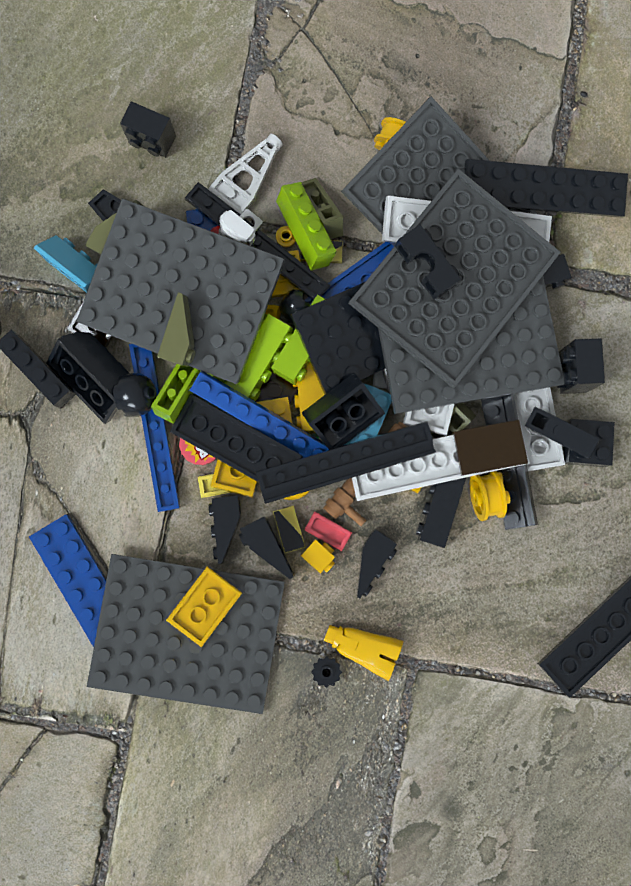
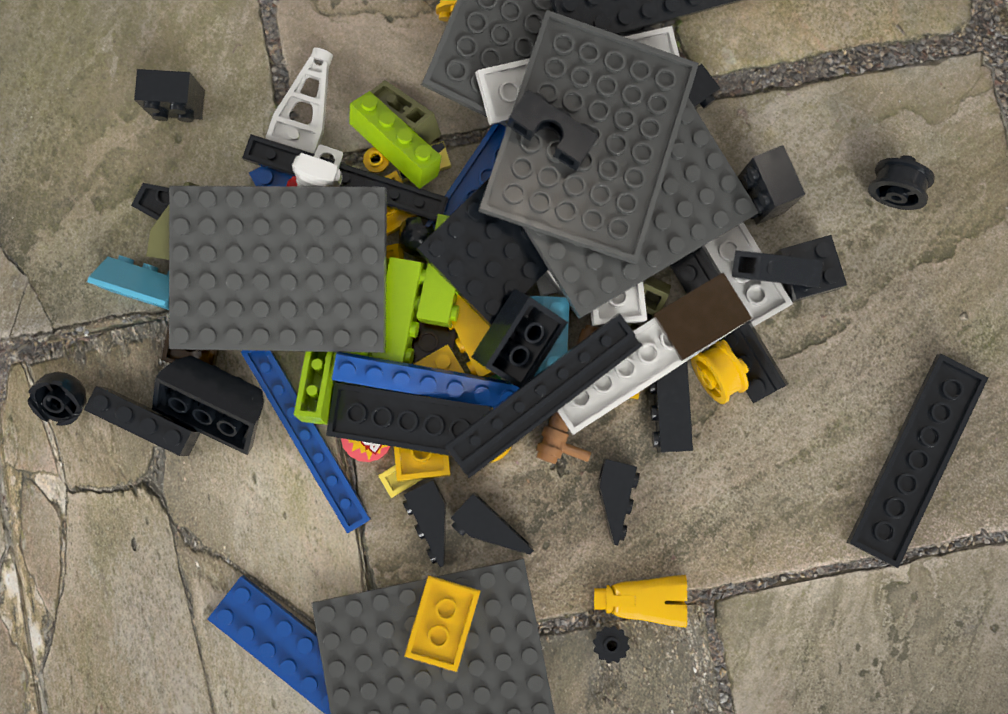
camera: 20 degrees left, 0 degrees up
(134, 394) = (269, 408): black cylinder -> none
(178, 338) = (297, 326): olive slope -> none
(289, 529) = (506, 496): black tile -> none
(319, 556) = (553, 514): yellow brick -> none
(328, 531) = (551, 481): coral tile -> none

